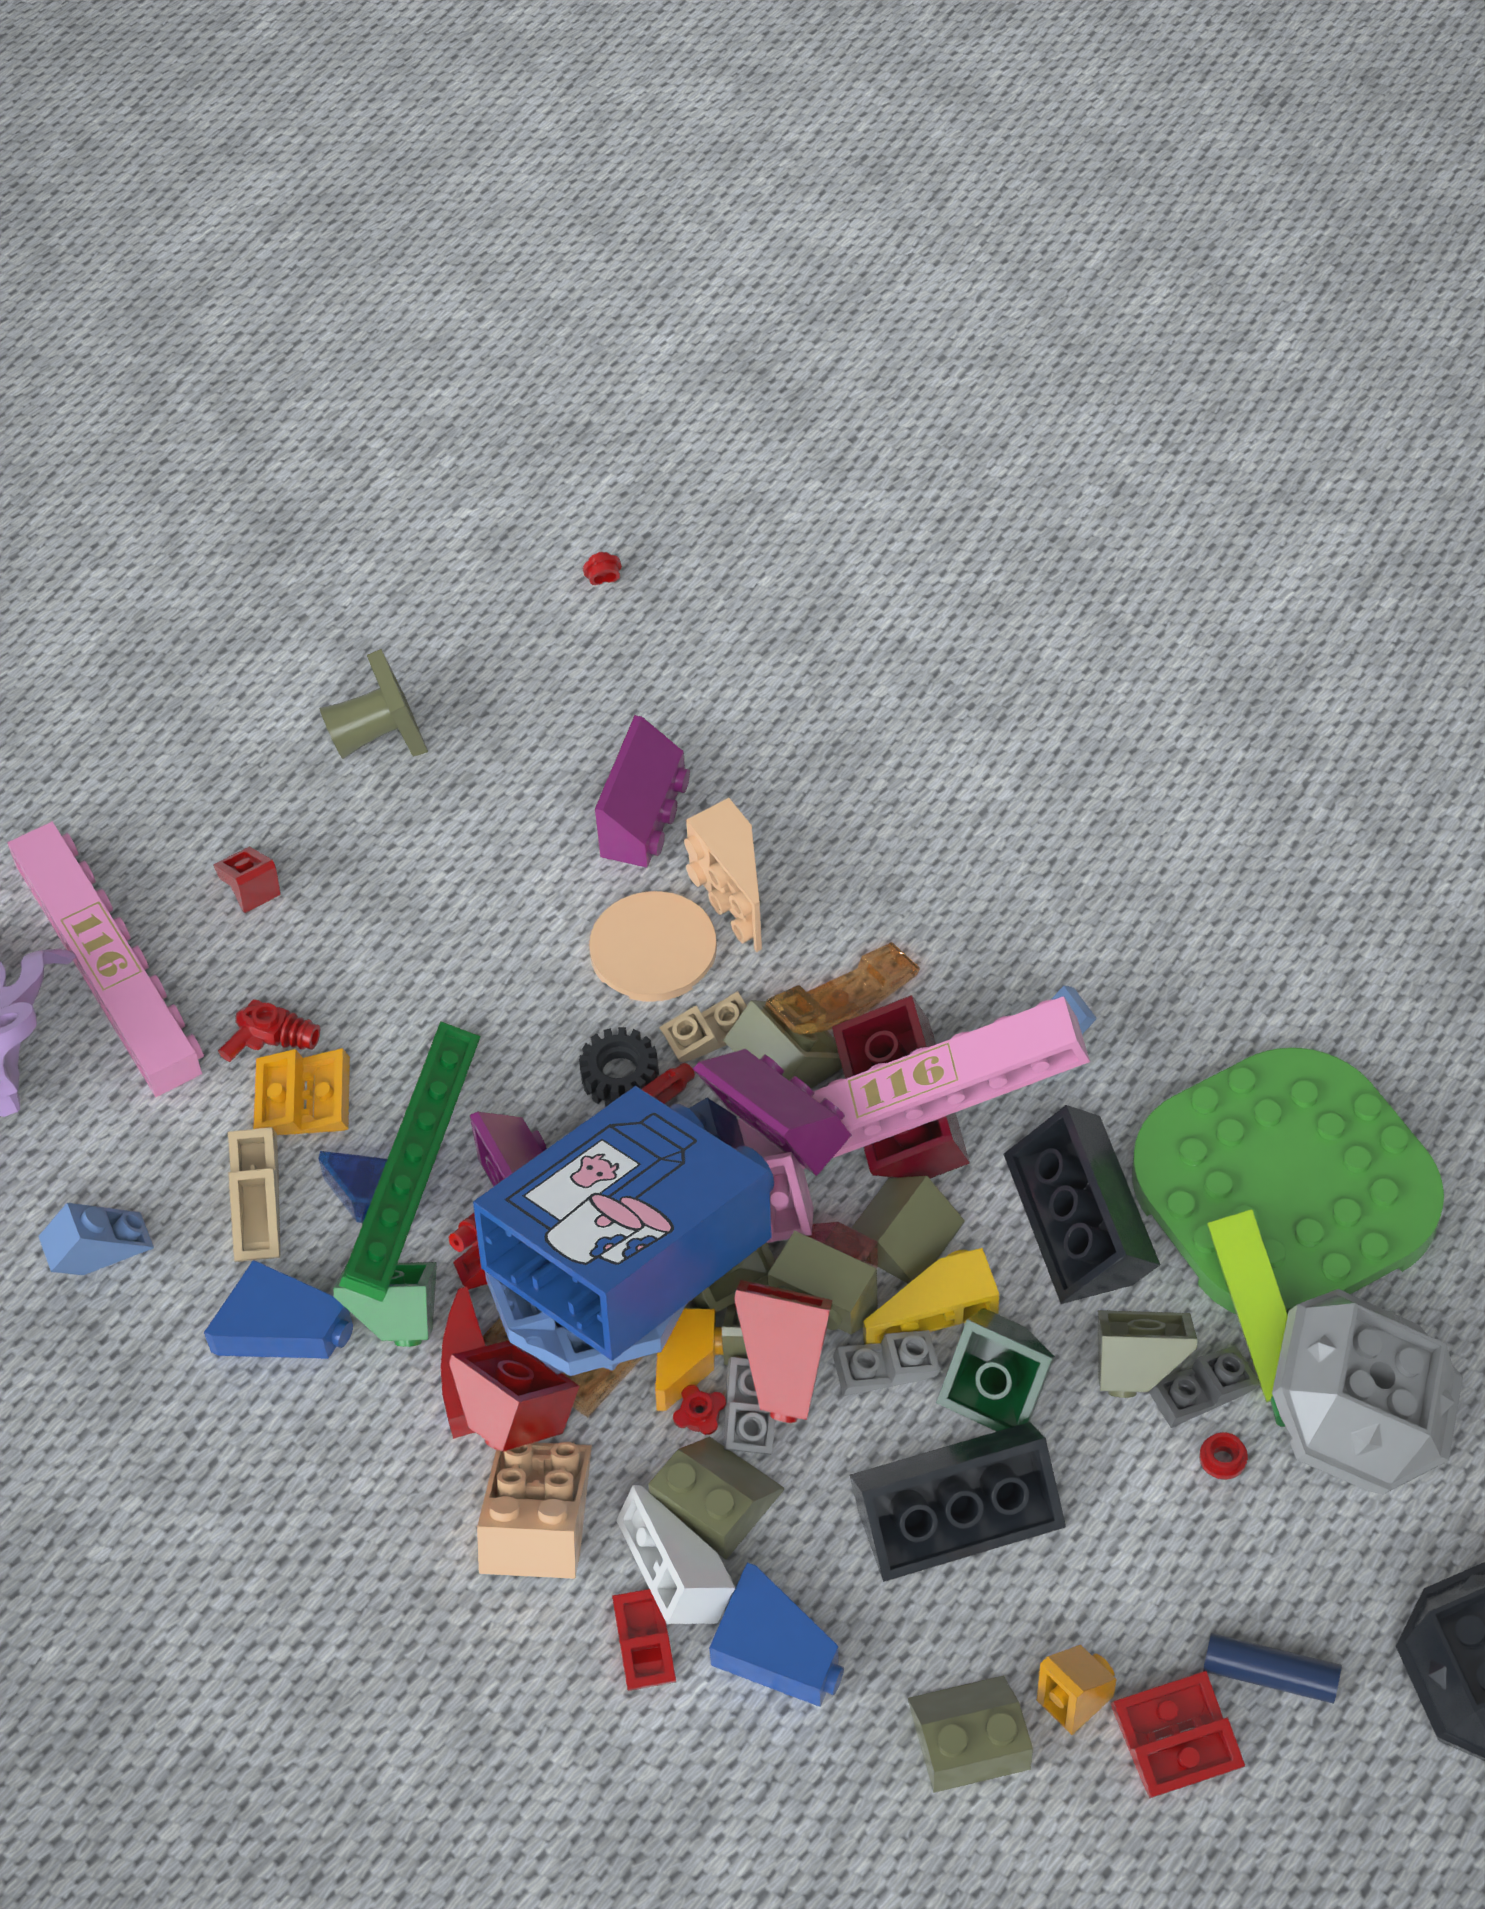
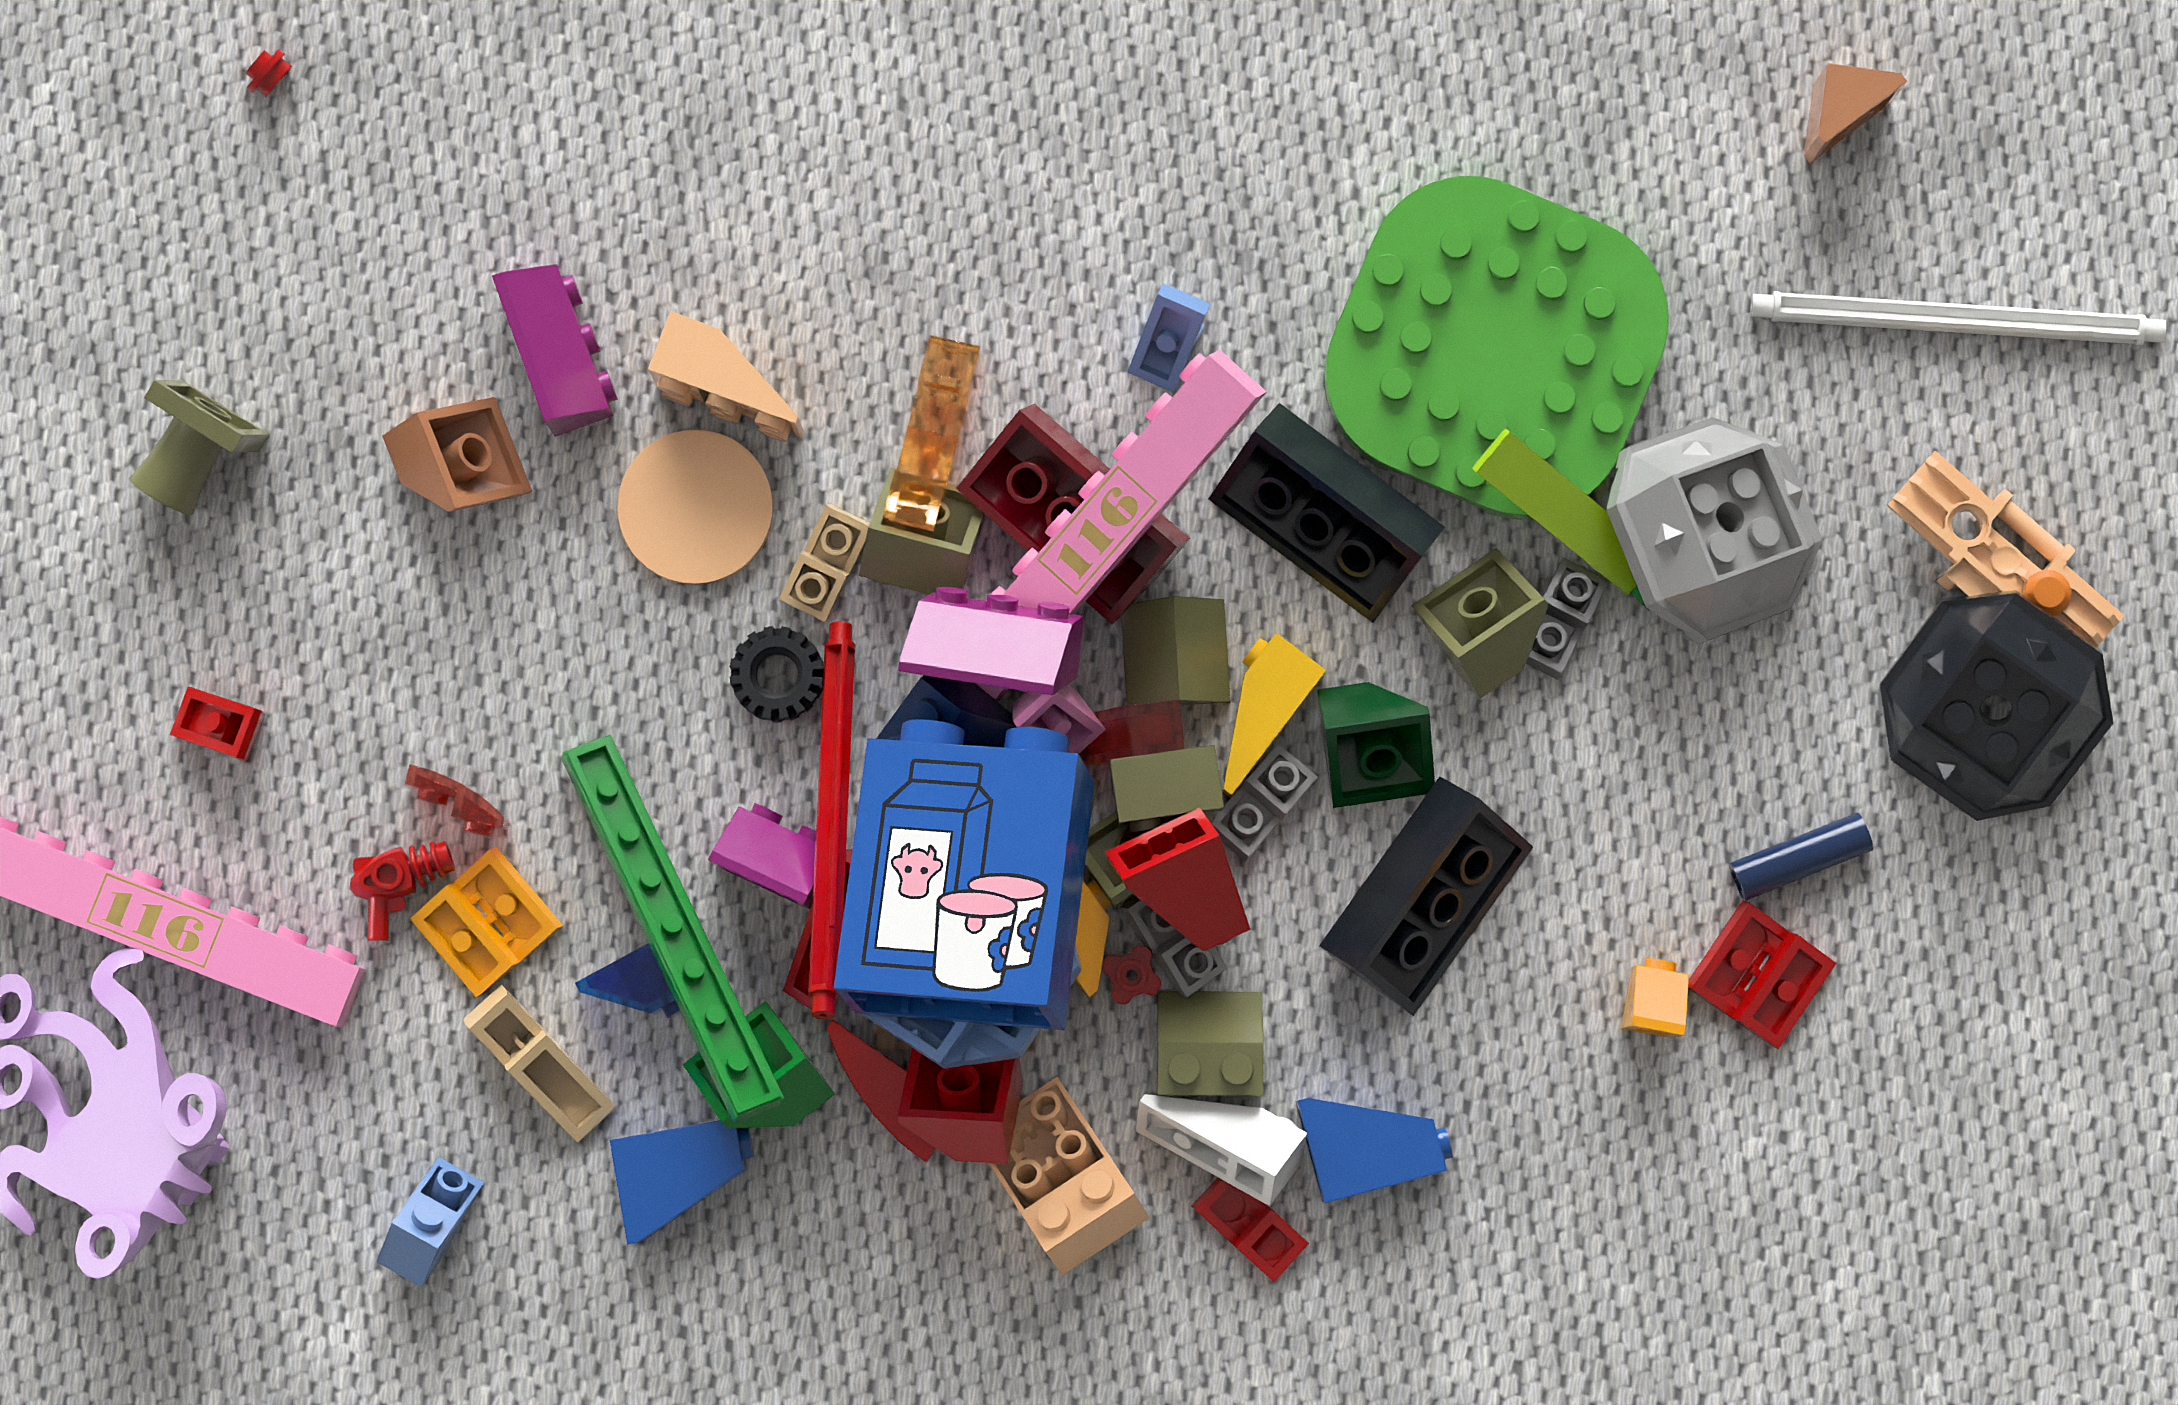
camera: 40 degrees left, 30 degrees up
(351, 1013) = (477, 813): none -> clear red slope
(531, 819) = (458, 455): none -> nougat slope
(971, 1733) = (1589, 1102): olive slope -> none
(1228, 1443) = (1628, 661): red plate -> none

